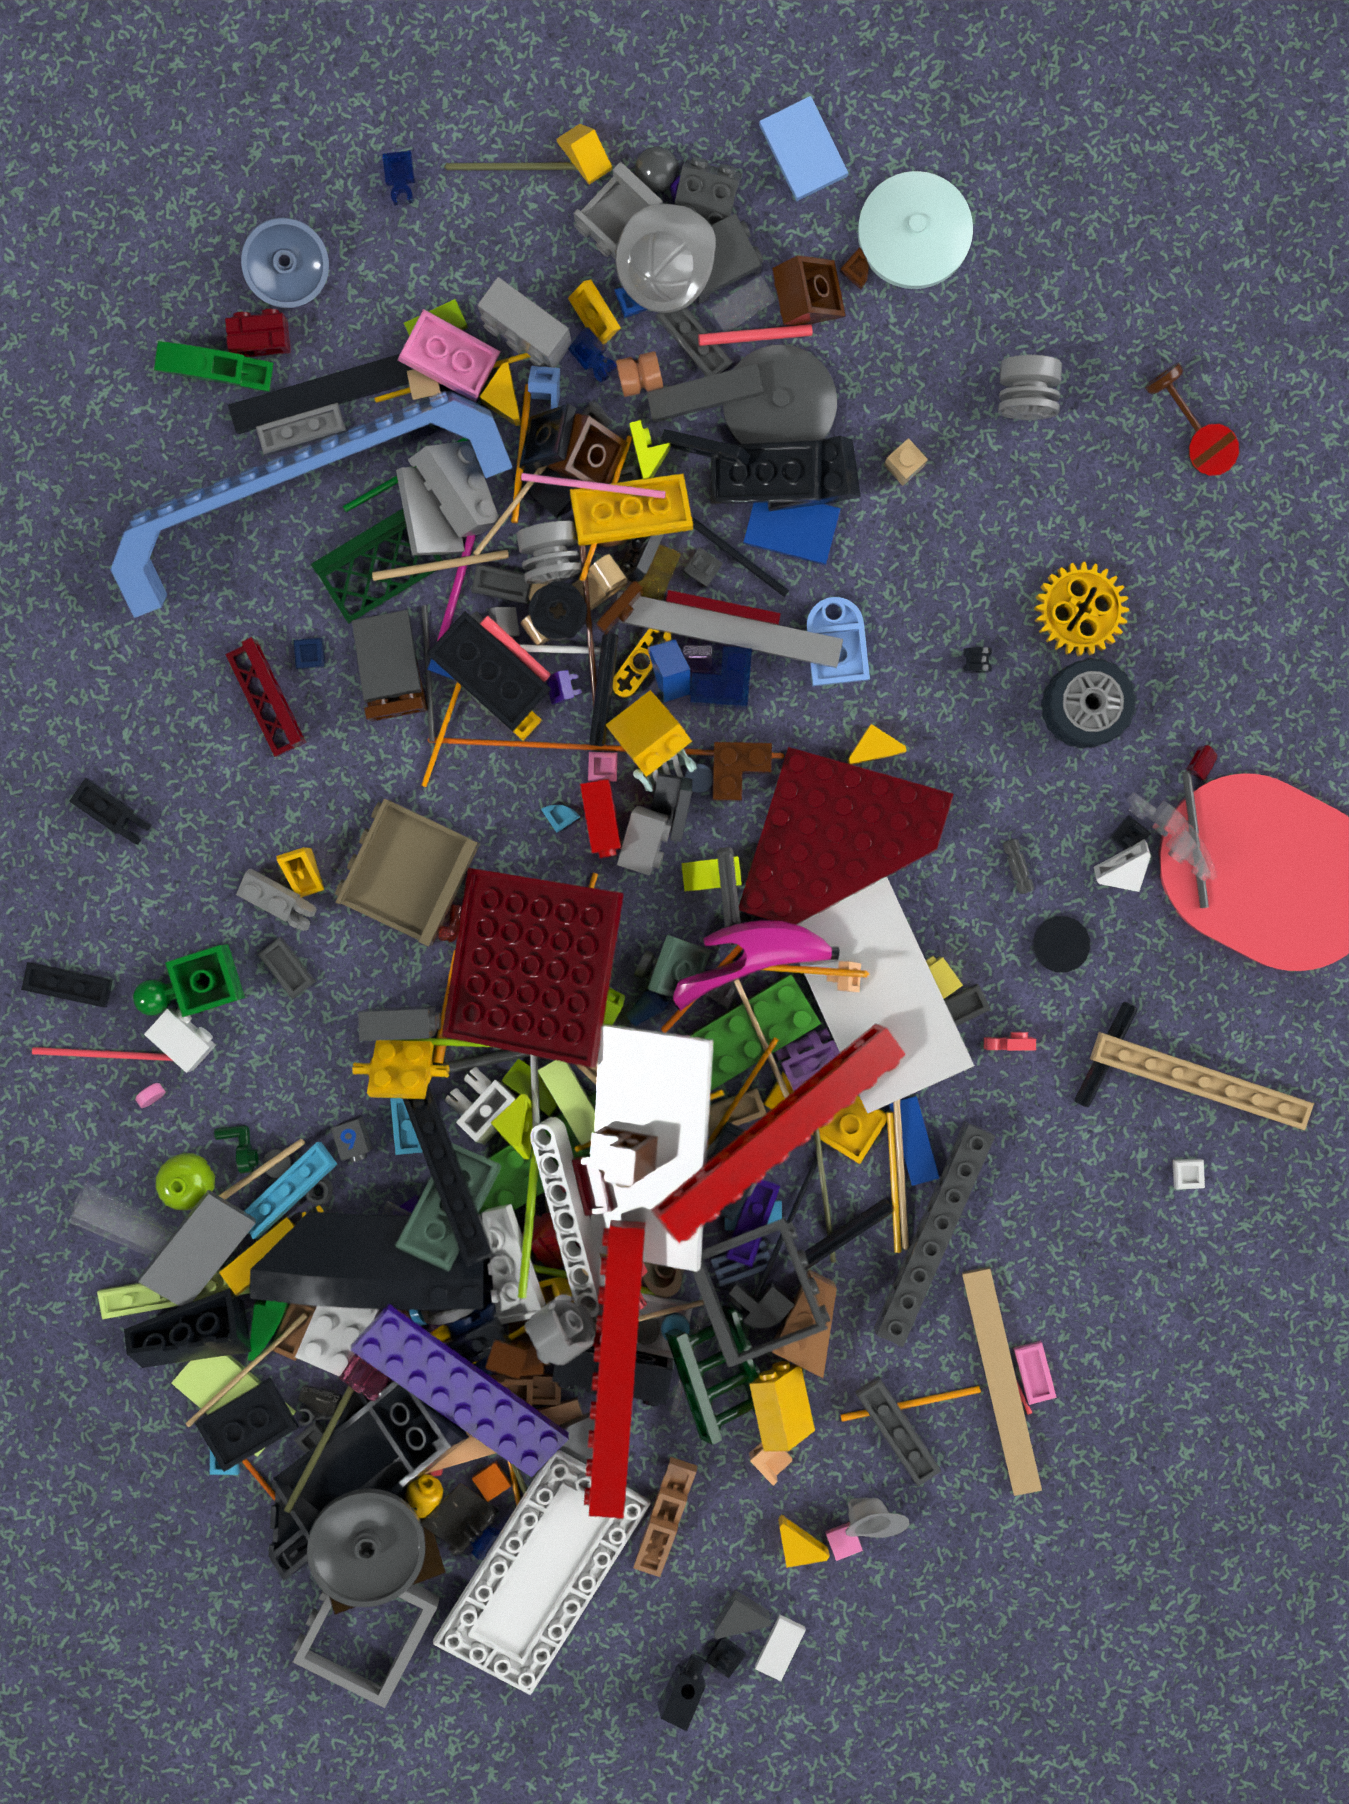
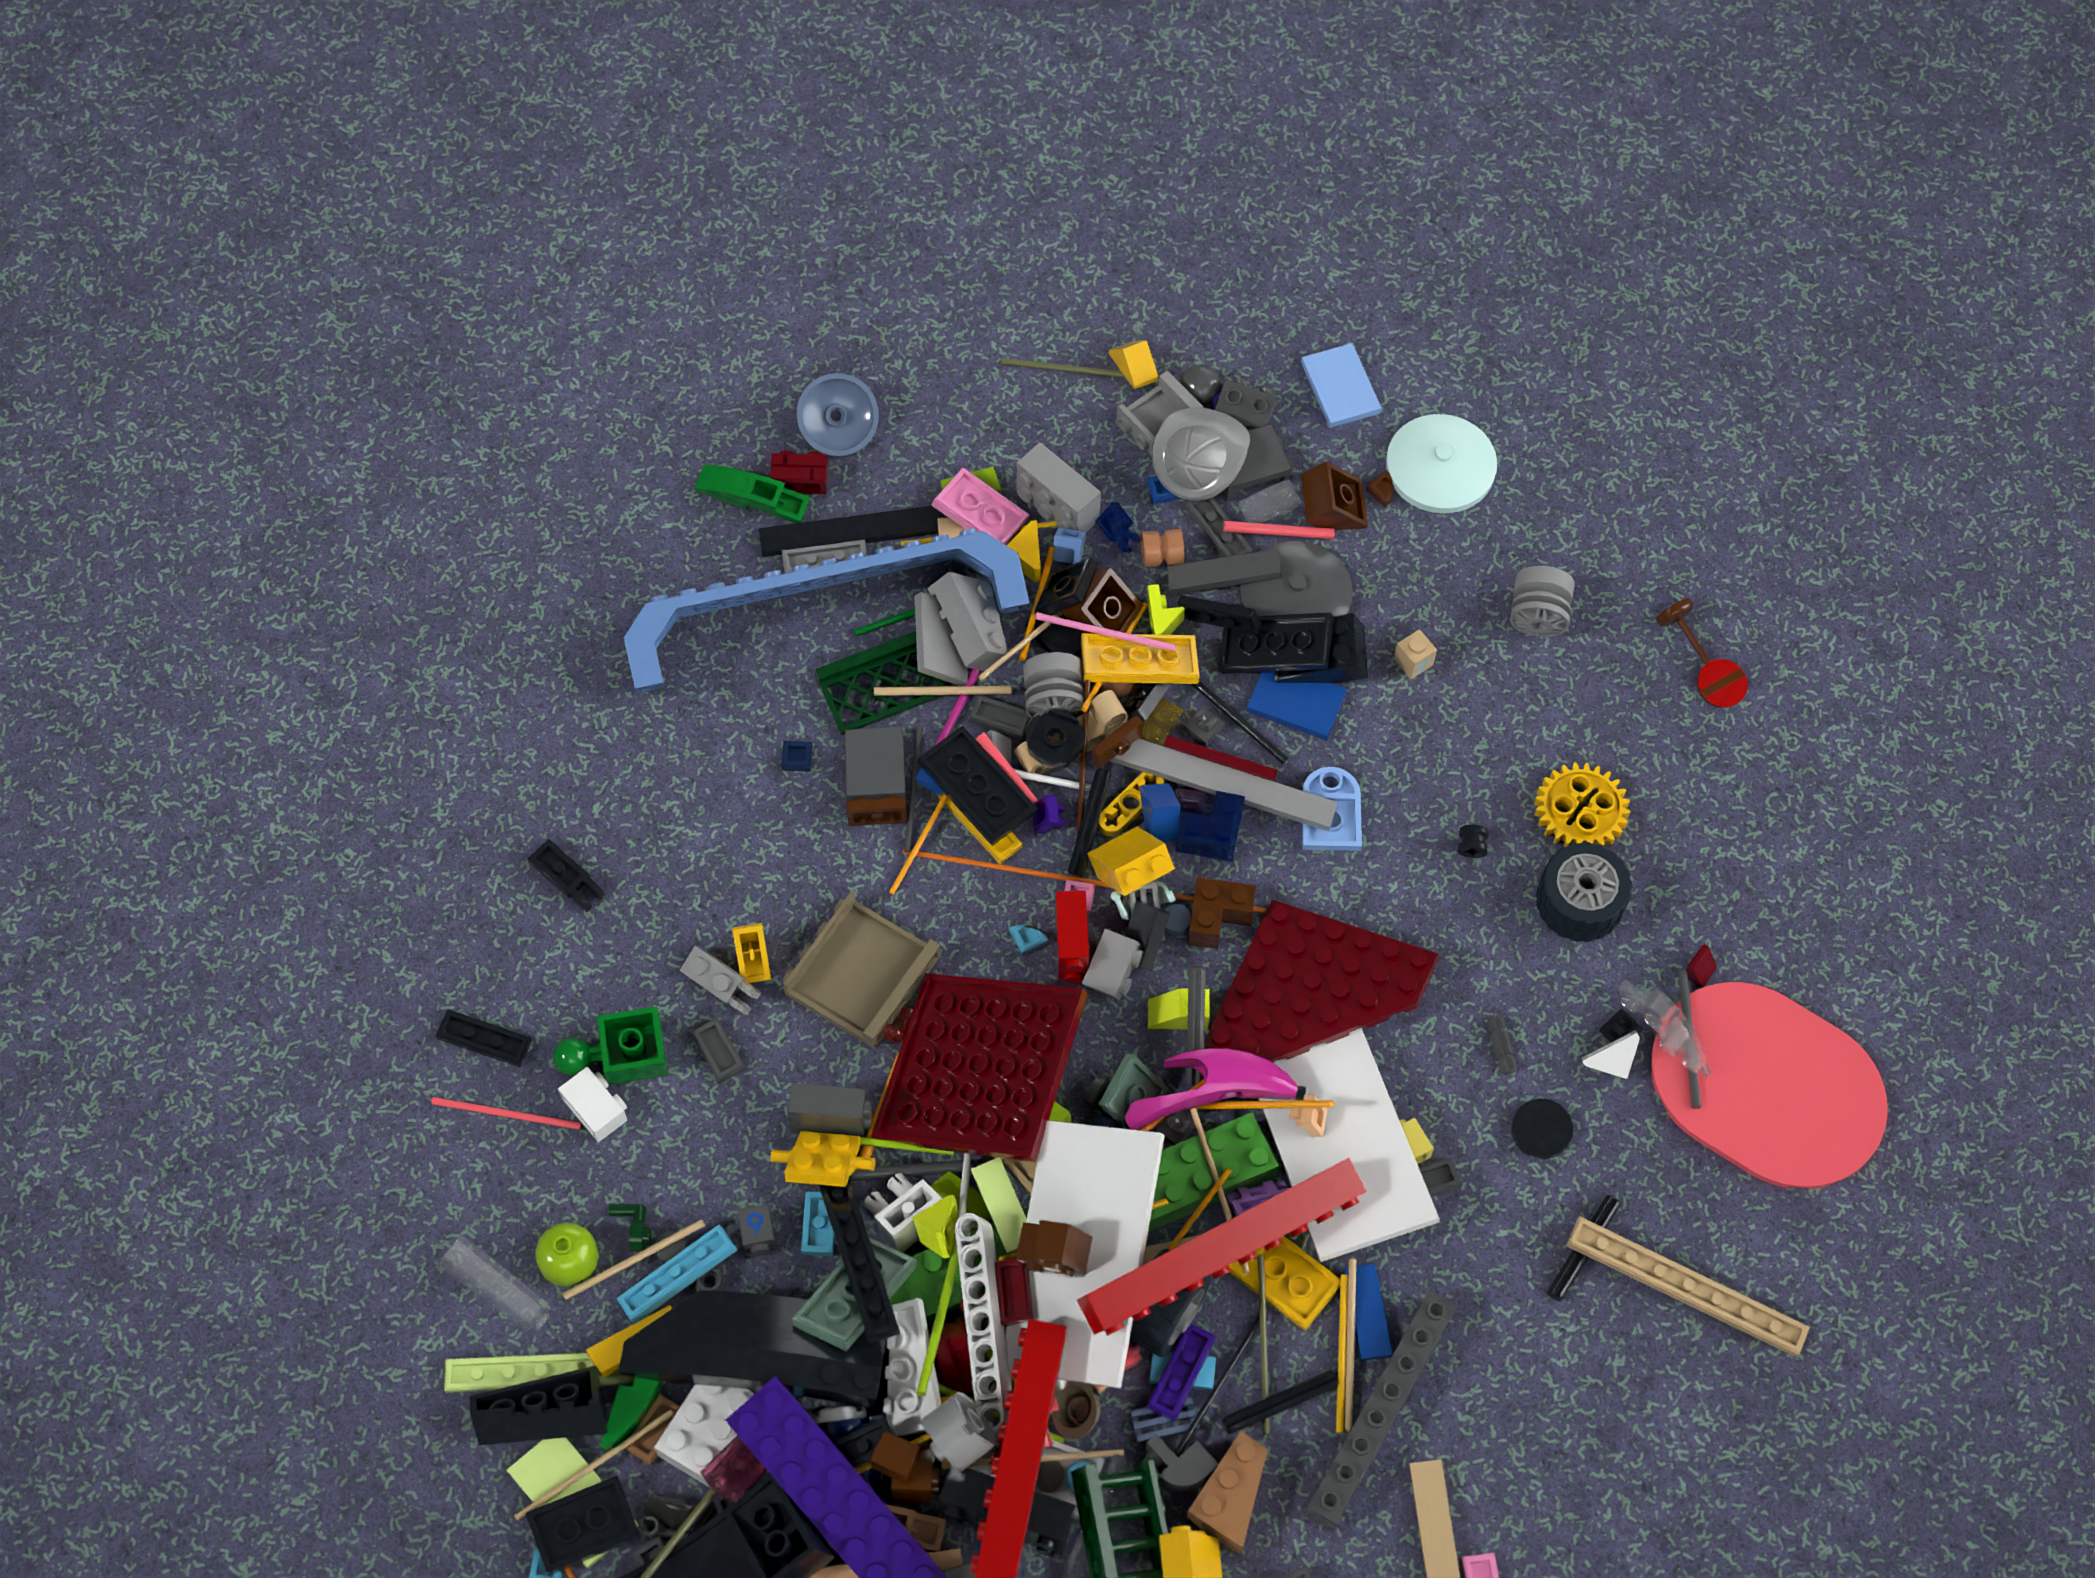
camera: 10 degrees right, 25 degrees down
(150, 1095) = (548, 1157): bright pink tile -> none
(197, 1249) = (568, 1318): tile -> none
(272, 691) = (754, 782): dark red fence -> none
(399, 173) = (957, 360): clear blue plate -> none
(594, 311) = (1125, 491): yellow plate -> none
(715, 1310) = (1164, 1382): dark grey window -> none
(875, 745) = (1363, 908): yellow slope -> none
(1017, 1042) = (1484, 1219): coral plate -> none
(1188, 1173) = (1669, 1387): white tile -> none

